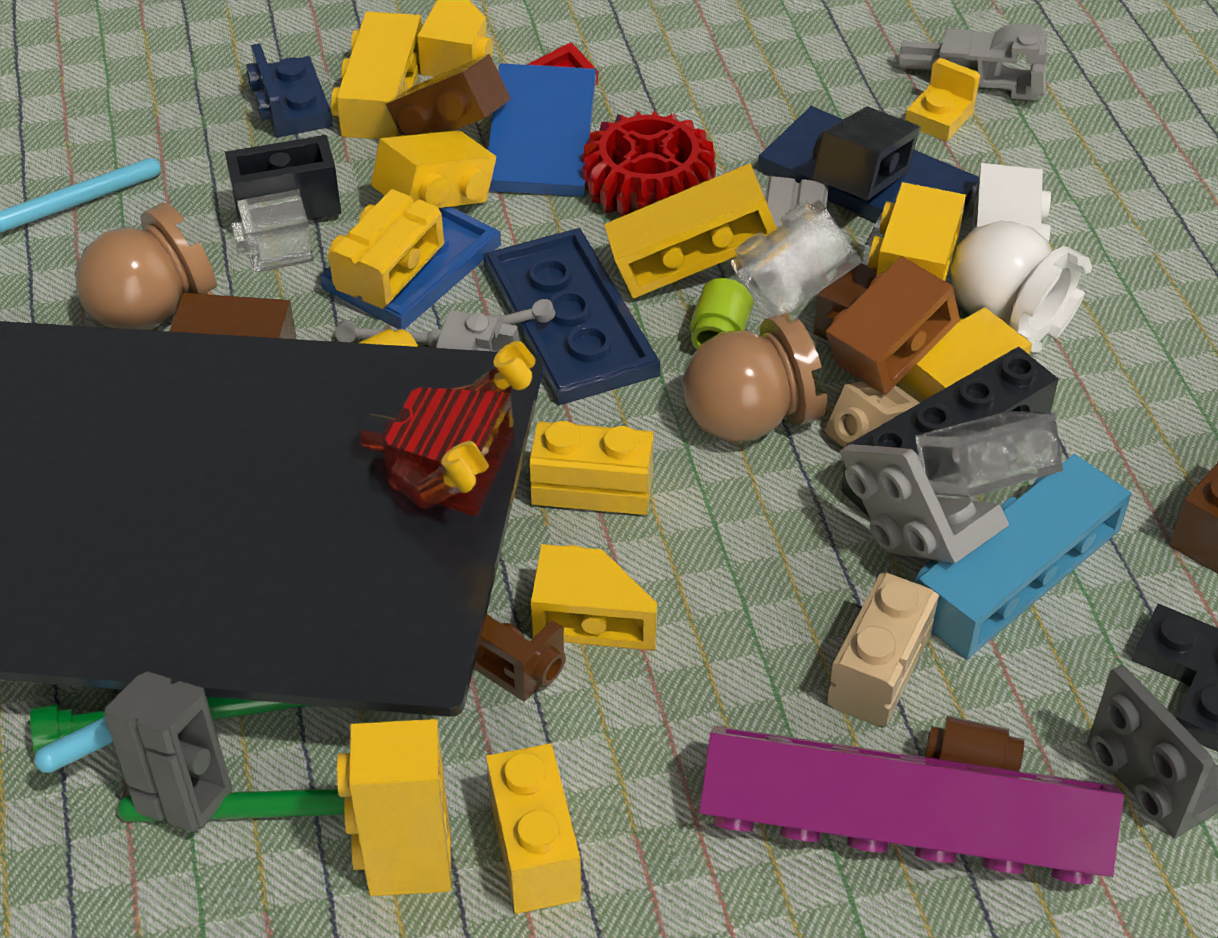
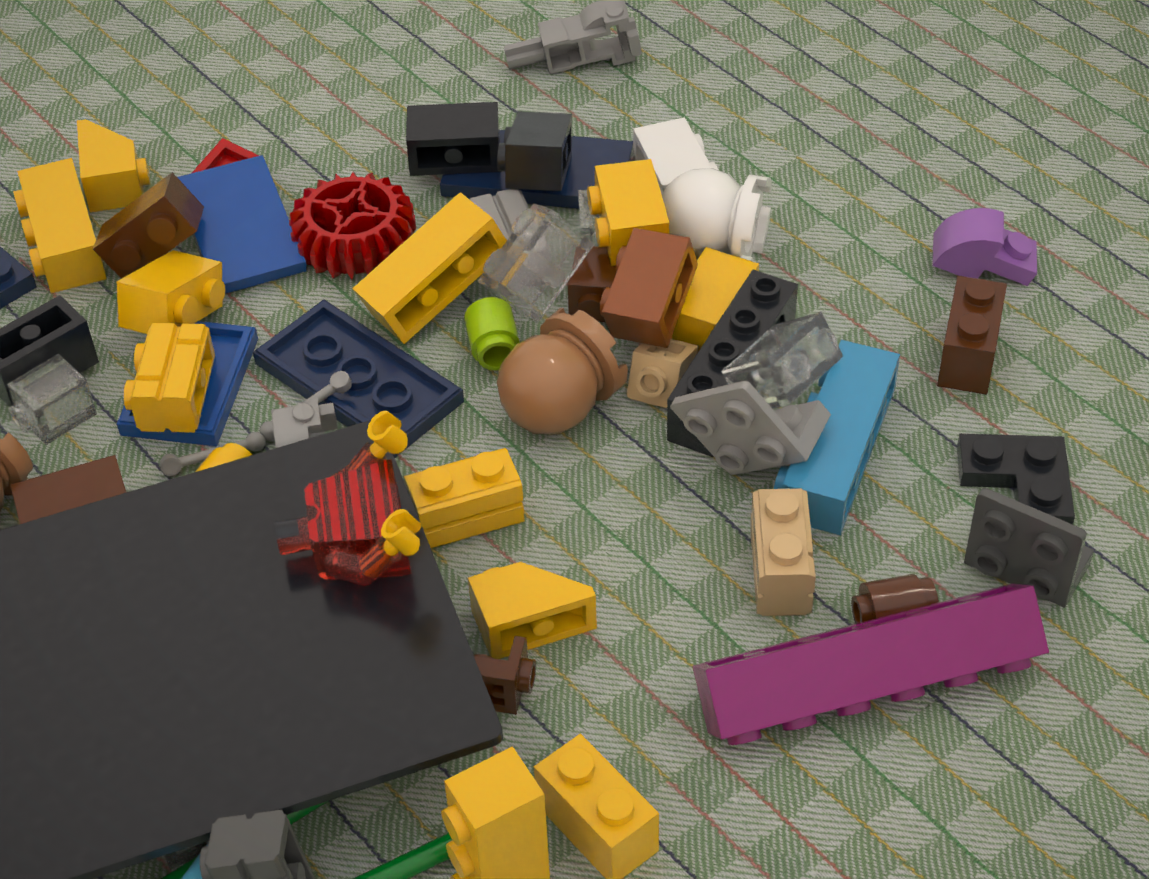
camera: 25 degrees left, 0 degrees up
(787, 111) = (452, 138): none -> black brick
(946, 101) = (565, 83): yellow bracket -> none

